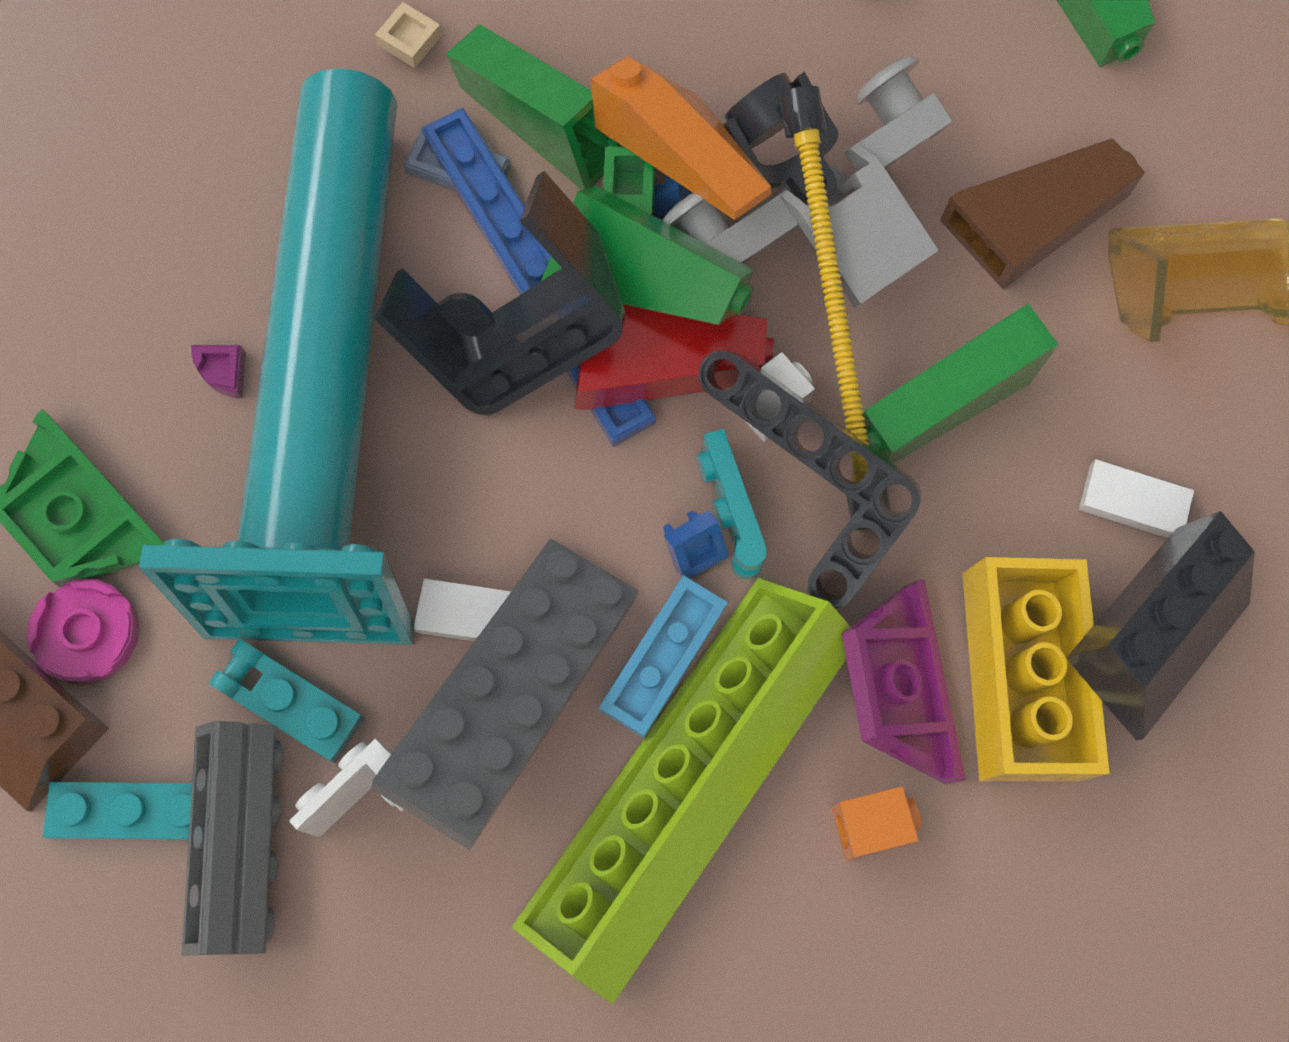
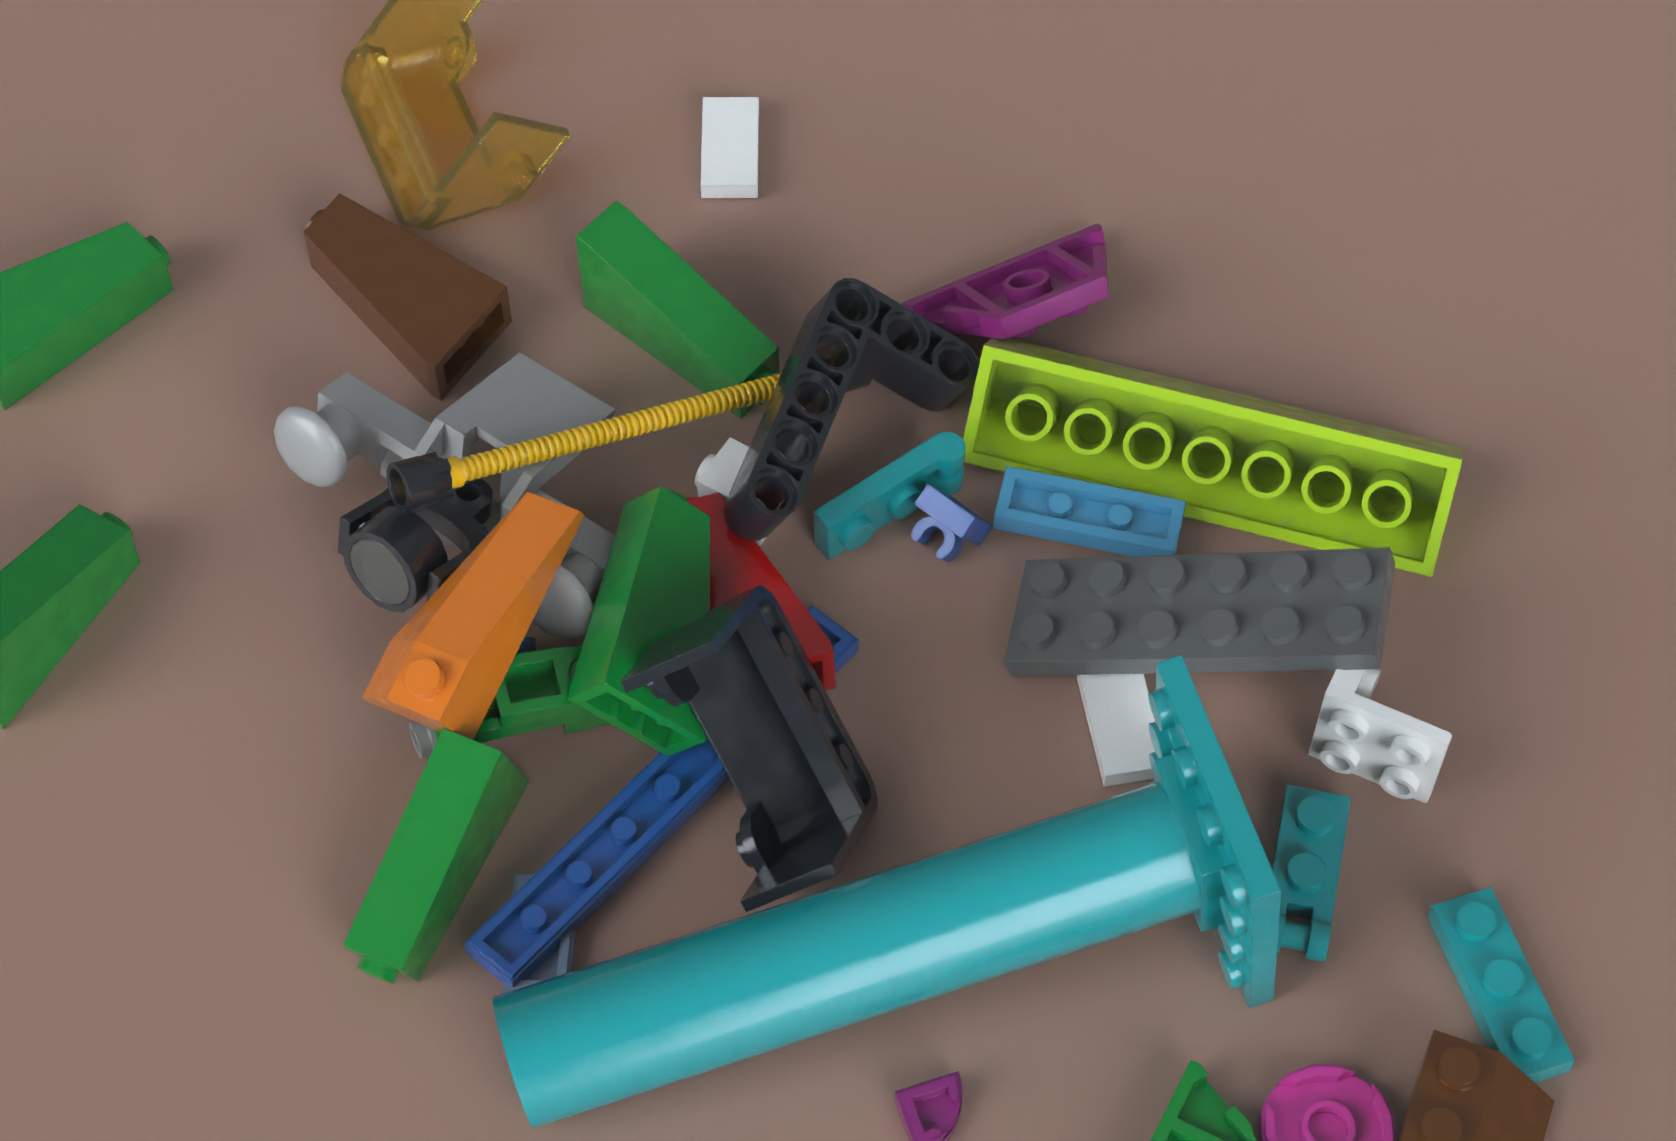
camera: 105 degrees left, 15 degrees down
(231, 839) = (1482, 851): dark grey brick -> none
(408, 35) = (366, 1055): tan plate -> none
(876, 822) = (1179, 283): orange brick -> none
(1028, 701) = (964, 183): yellow brick -> none
(1167, 621) = (867, 77): black slope -> none

